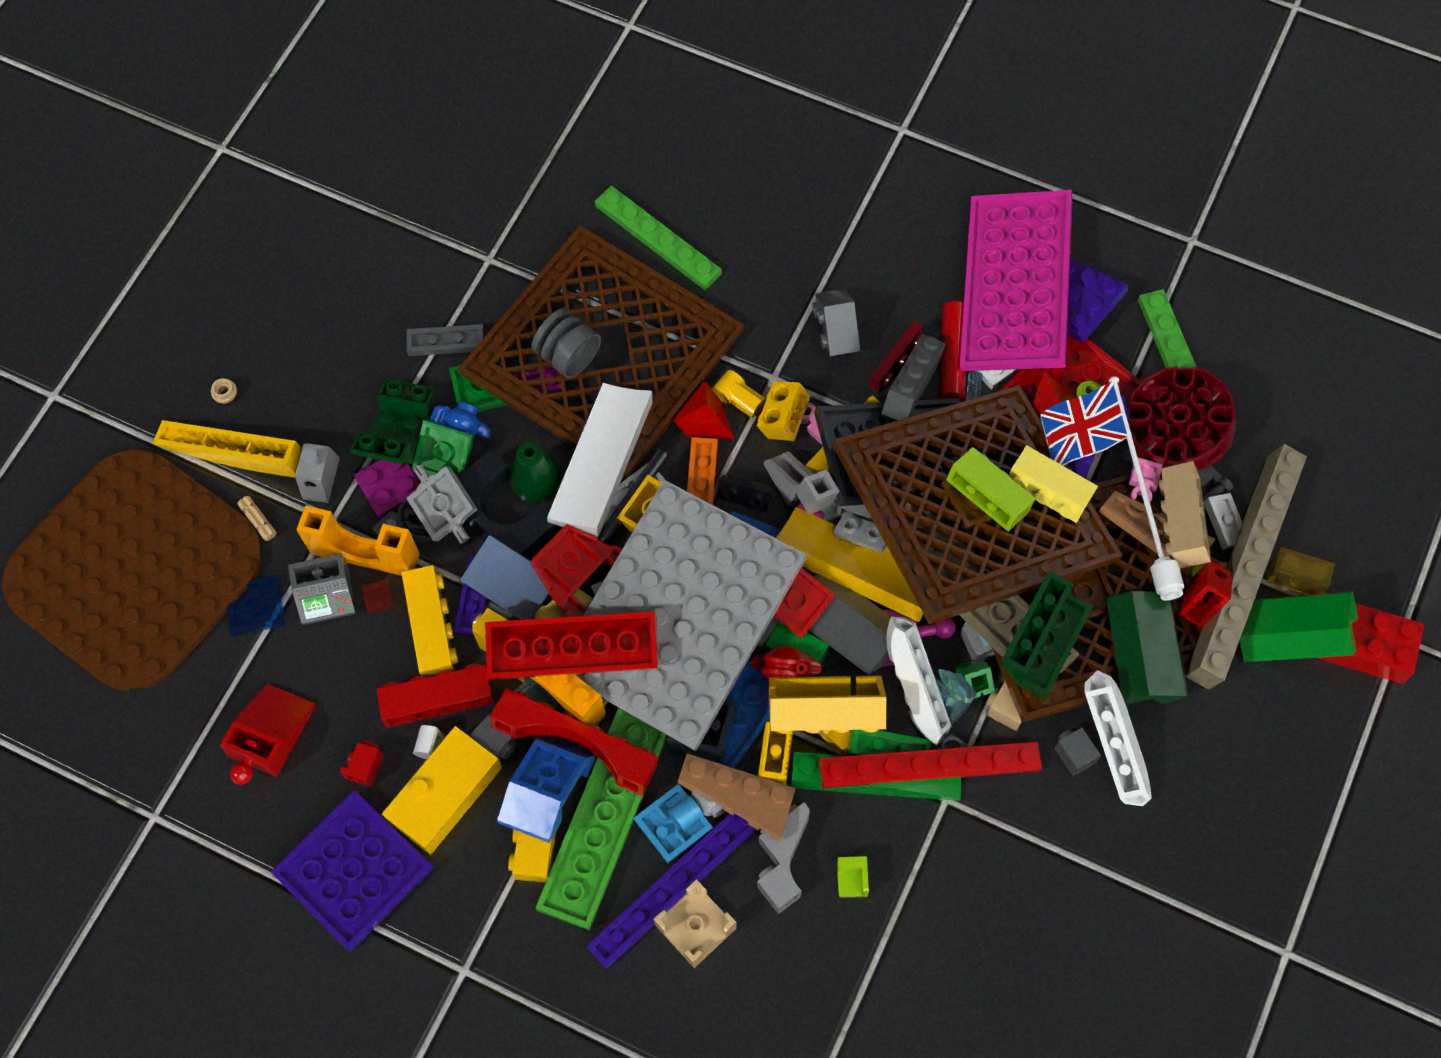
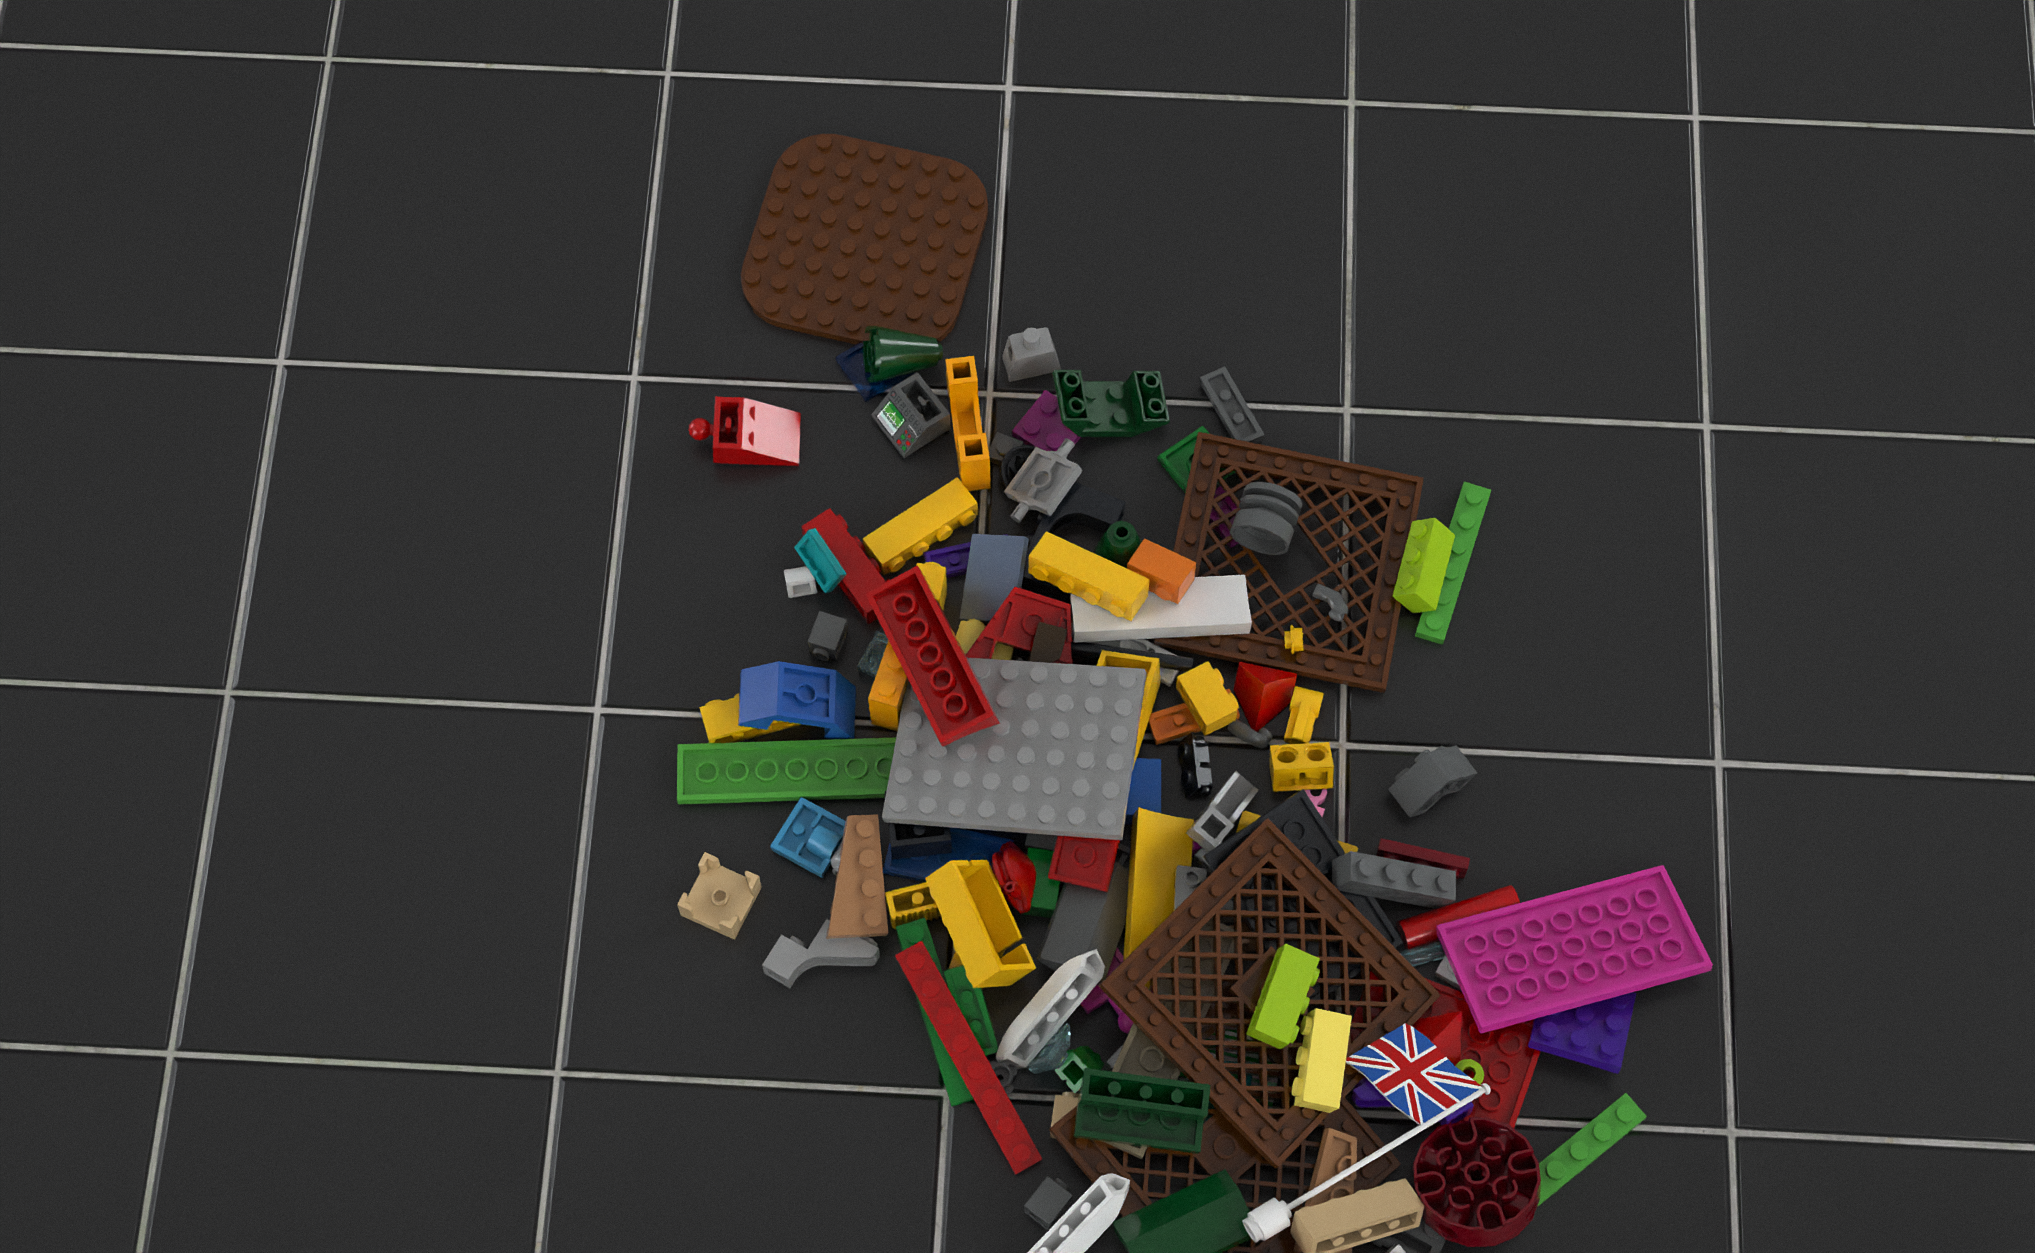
camera: 65 degrees right, 0 degrees up
(221, 385) = (1078, 226): tan plate -> none
(231, 448) = (1020, 263): yellow slope -> none
(257, 518) = (962, 325): tan axle -> none
(258, 578) = (898, 353): none -> dark green cone
(352, 870) = (651, 568): dark purple plate -> none
(363, 763) = (755, 531): red brick -> none
(378, 596) = (928, 469): clear red plate -> none
(424, 714) = (820, 560): none -> teal plate
(442, 447) = (1105, 458): green tile -> none
(442, 790) = (756, 612): yellow brick -> none
(462, 418) = (1143, 460): blue piece -> none
(523, 717) = (852, 650): red arch -> none
(551, 497) = (1088, 576): none -> yellow brick
(573, 440) = (1167, 571): none -> orange brick
(595, 557) = (1047, 643): none -> dark brown slope
(654, 327) = (1334, 599): none -> dark grey arm
(655, 254) = (1423, 565): none -> lime brick
(669, 889) = (741, 857): dark purple plate -> none
(675, 369) = (1294, 639): none -> yellow plate
(696, 454) = (1207, 698): none -> yellow brick
(742, 435) = (1258, 739): none -> dark grey arm
(852, 877) = (827, 1028): lime panel -> none
(1151, 474) = (1390, 1167): bright pink plate -> none

